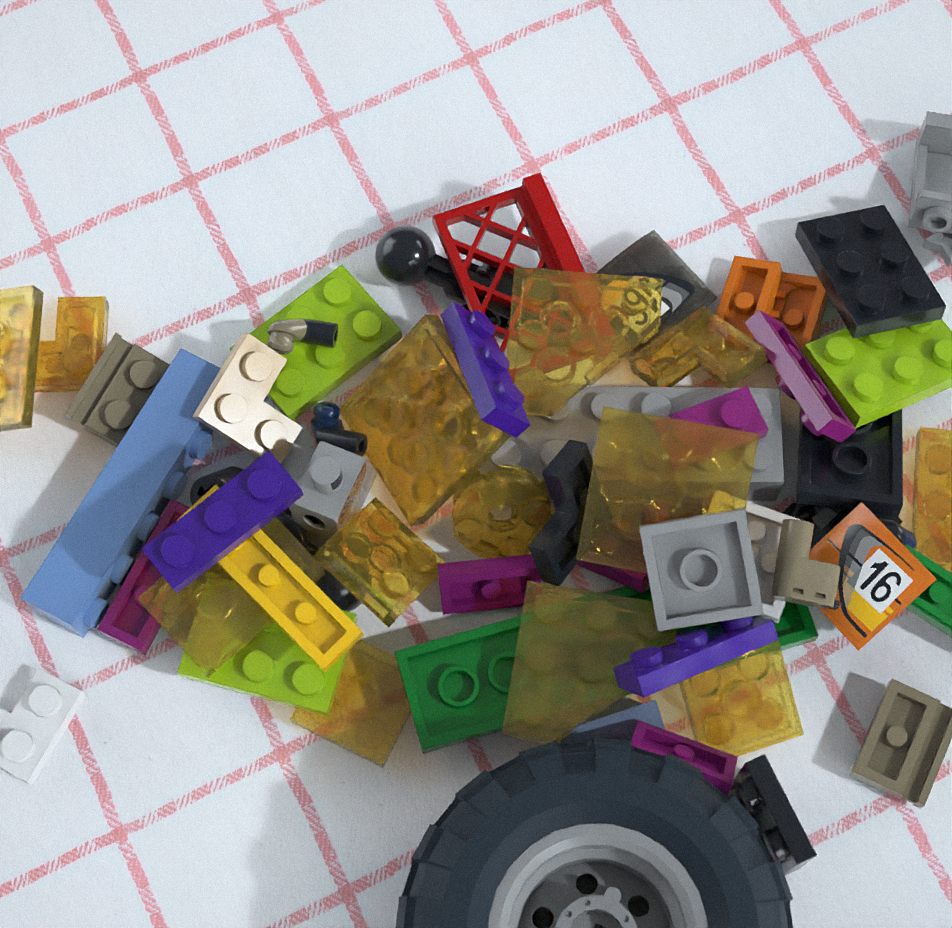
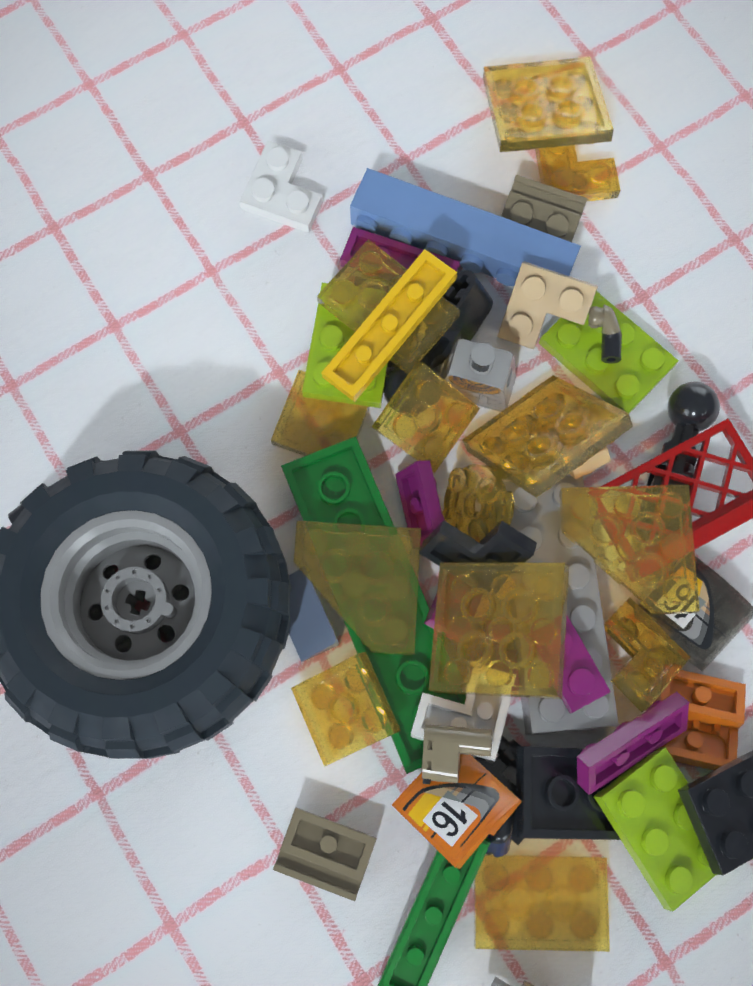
camera: 80 degrees right, 5 degrees up
(222, 521) = (426, 280): dark purple plate -> none
(330, 429) = (531, 371): arm -> none
(485, 369) = (587, 467): dark purple plate -> none
(692, 654) = (371, 665): dark purple plate -> none
(701, 569) = (438, 661): light grey plate -> none
(716, 764) = (292, 667): magenta plate -> none
(767, 803) = (233, 746): black plate -> none

